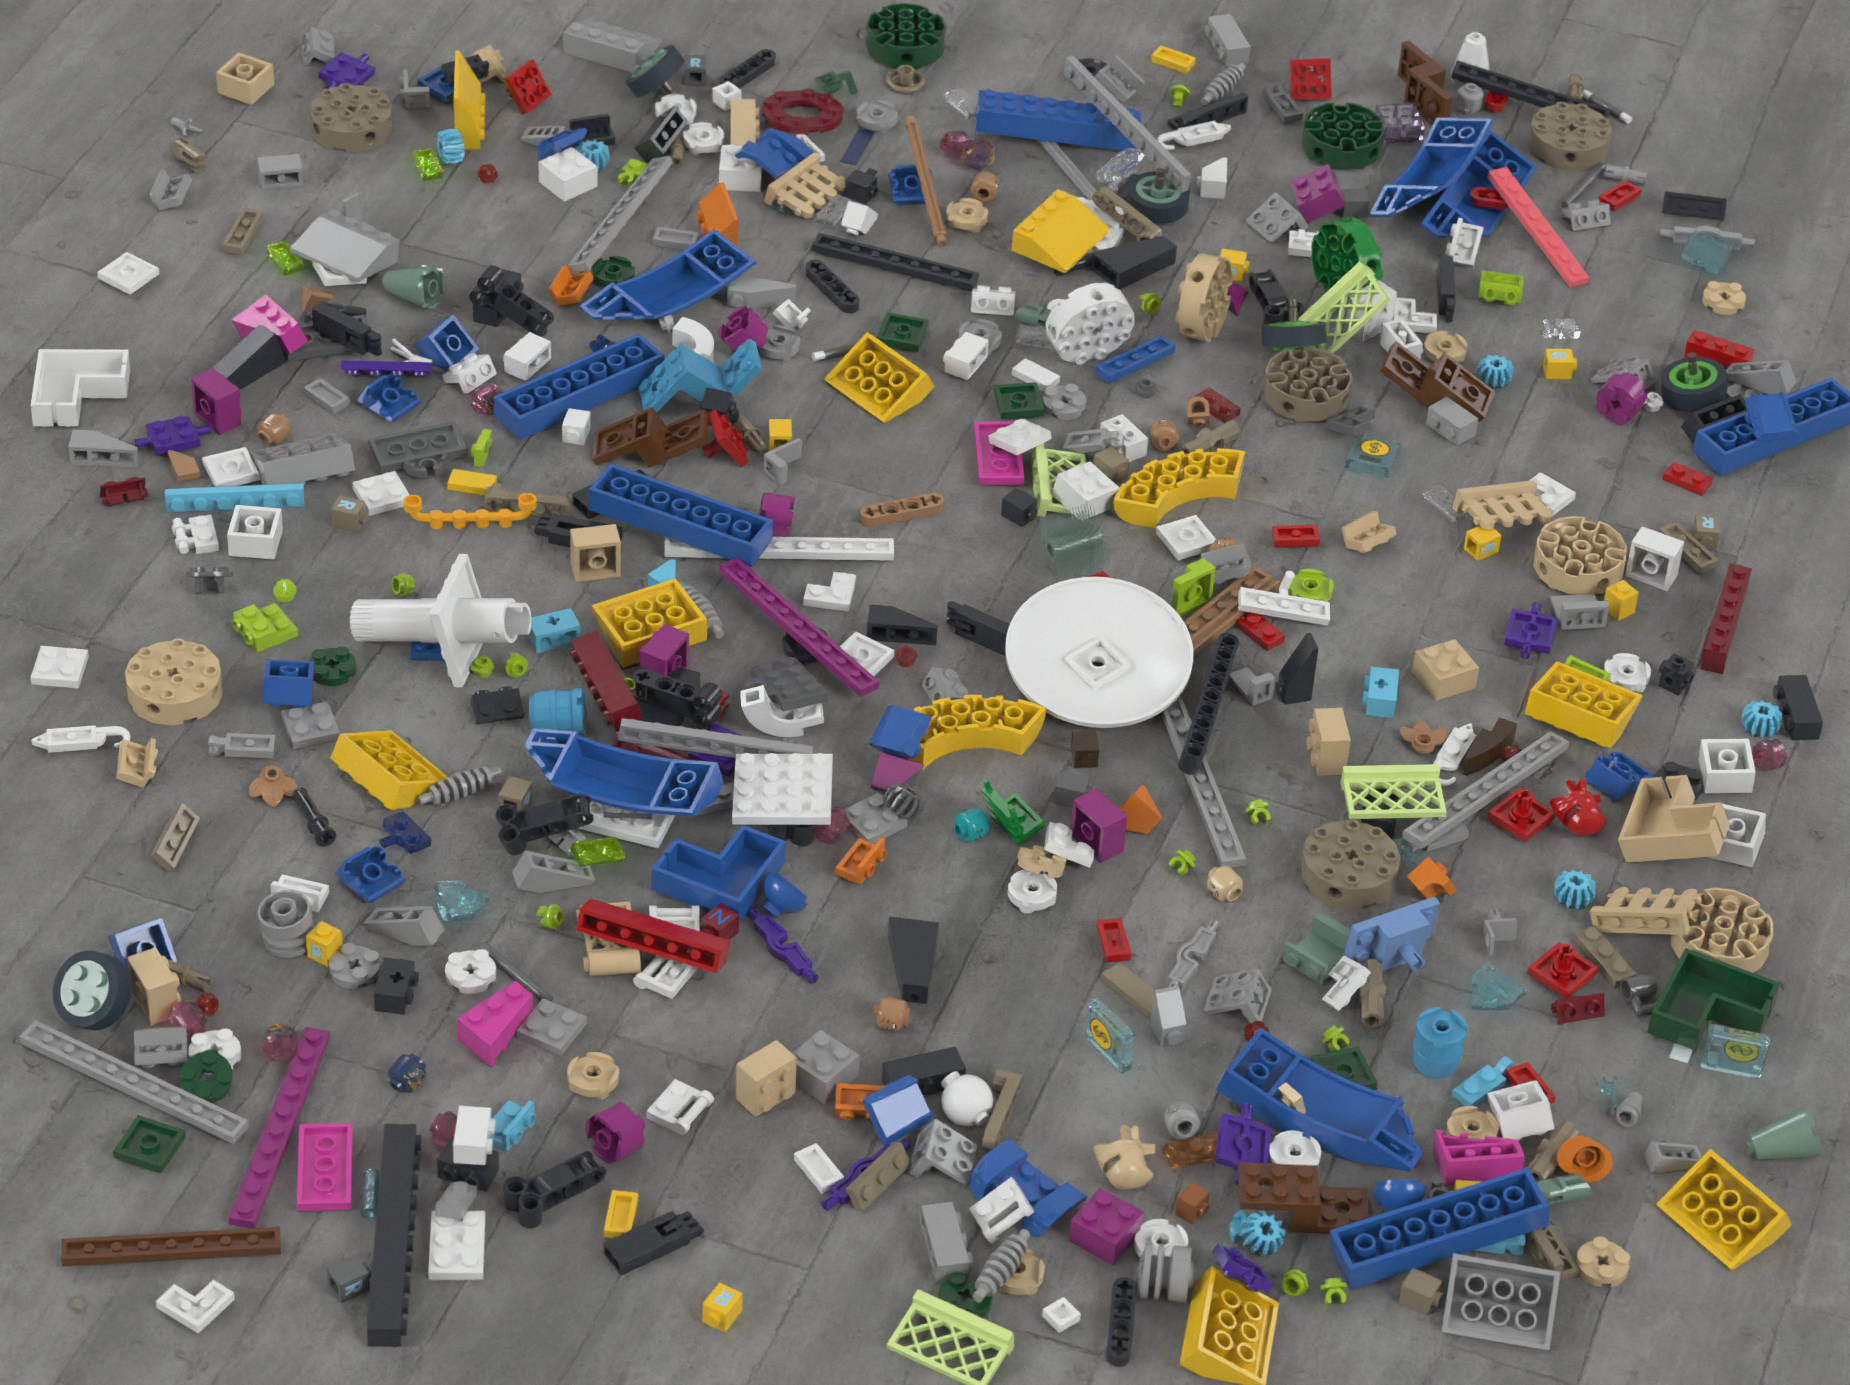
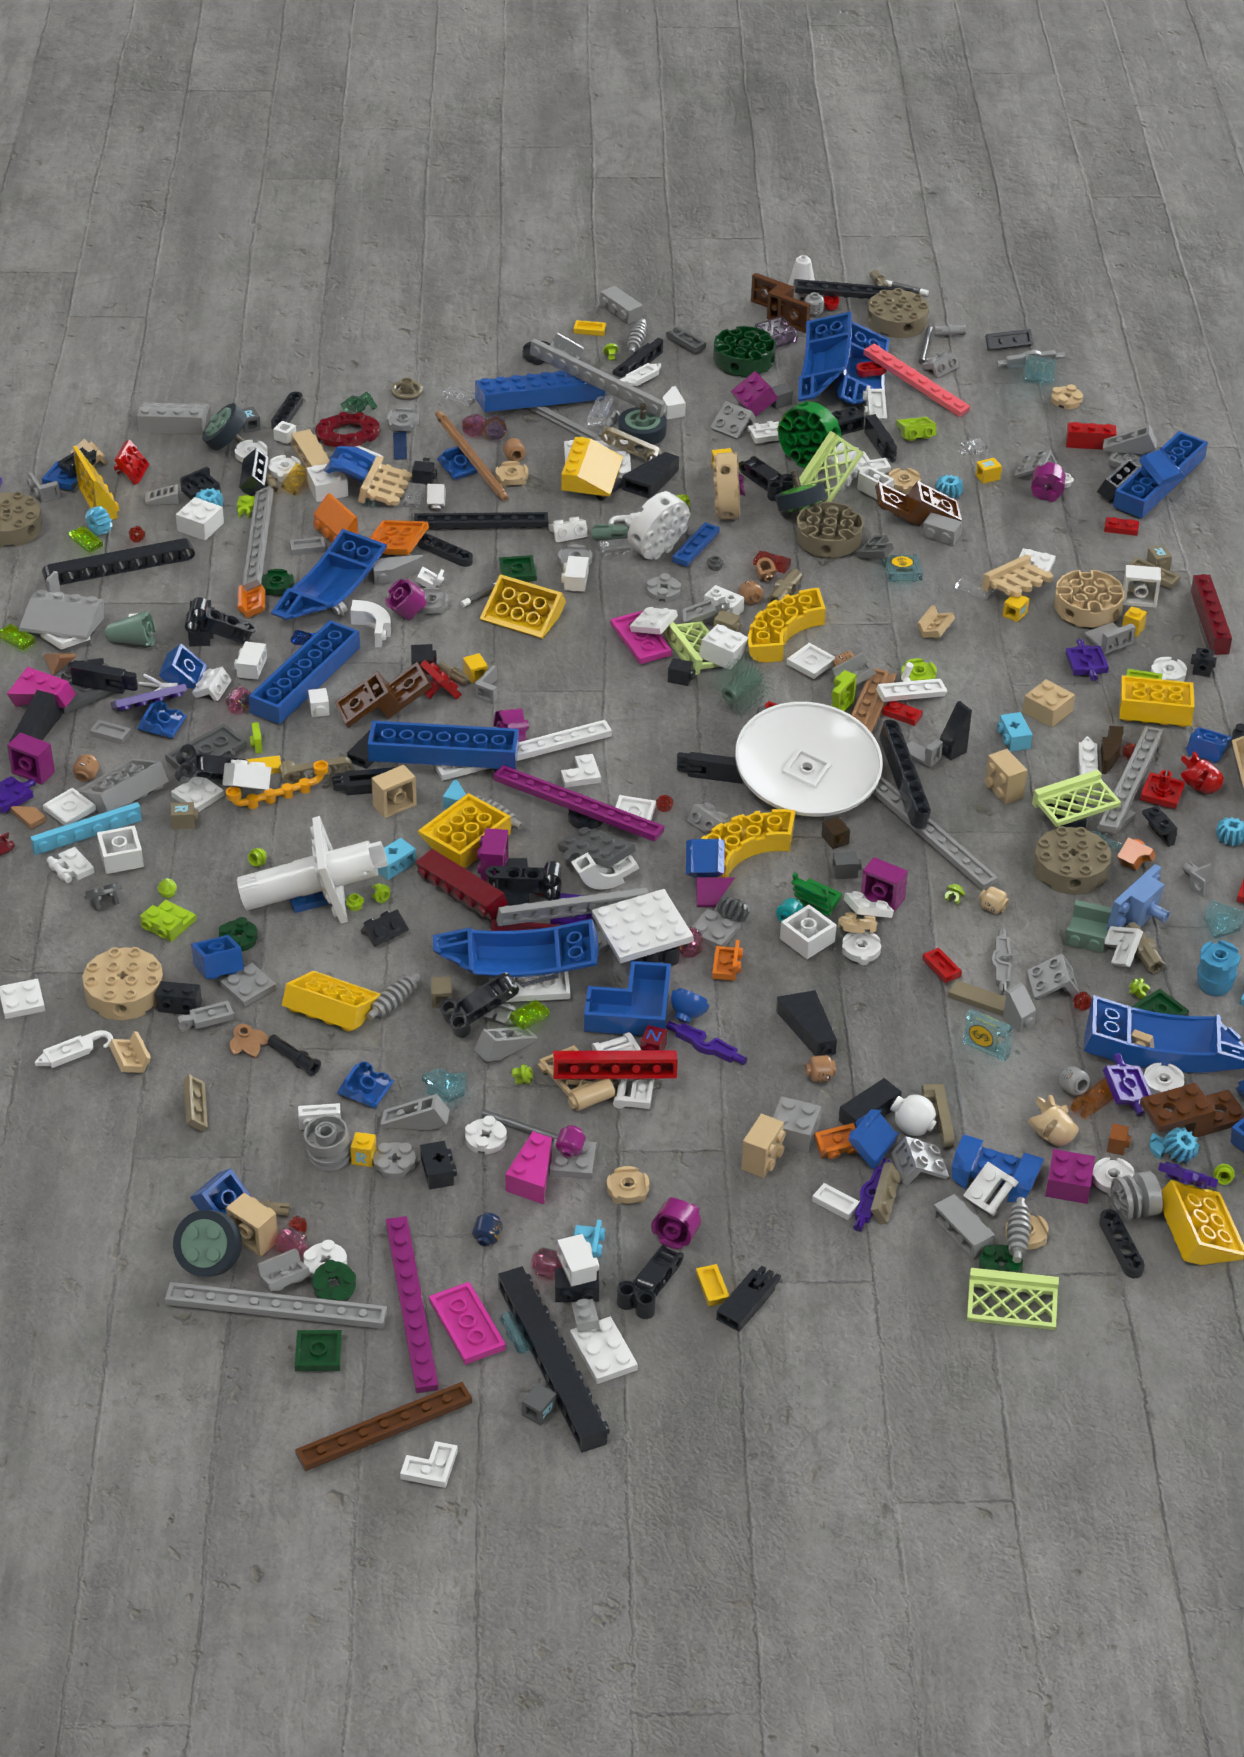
camera: 20 degrees left, 0 degrees up
(223, 715) = (178, 997): none -> black brick
(279, 1042) = (374, 1237): clear pink head -> none
(404, 833) = (372, 1045): clear blue plate -> none
(405, 465) = (200, 764): none -> black piece
(438, 487) = (250, 776): none -> white brick
(450, 201) = (121, 561): none -> black beam
(551, 1005) = (570, 1141): none -> magenta head
(558, 710) = (438, 917): dark azure piece -> none
(560, 142) = (182, 497): blue slope -> none
(674, 1102) = (699, 1186): white plate -> none
(693, 373) = (386, 638): dark azure bracket -> none
(705, 155) = (295, 479): none -> clear yellow plate
(722, 1307) = (833, 1330): yellow brick -> none
(783, 255) = (399, 535): none -> orange plate
(876, 514) = (578, 705): medium nougat beam -> none
(898, 626) = (648, 782): black slope -> none
(905, 35) = (391, 357): dark green brick -> none
(975, 853) = (808, 931): none -> white brick
(1019, 400) = (632, 596): dark green plate -> none
(1032, 372) = (631, 575): white tile -> none
(1061, 1315) = (1077, 1252): white plate -> none
(1141, 811) = (901, 859): orange slope -> none
(1256, 808) = (983, 839): lime plate -> none
(1295, 536) = (885, 638): red plate -> none
(1302, 79) = (693, 318): red plate -> none
(1415, 255) = (849, 420): none -> black brick
(1423, 738) = (1061, 757): medium nougat plate -> none
(1487, 854) = (1161, 824): none -> black bracket
(1620, 195) = (955, 344): red plate -> none
(1693, 383) = (1088, 459): black wheel -> none

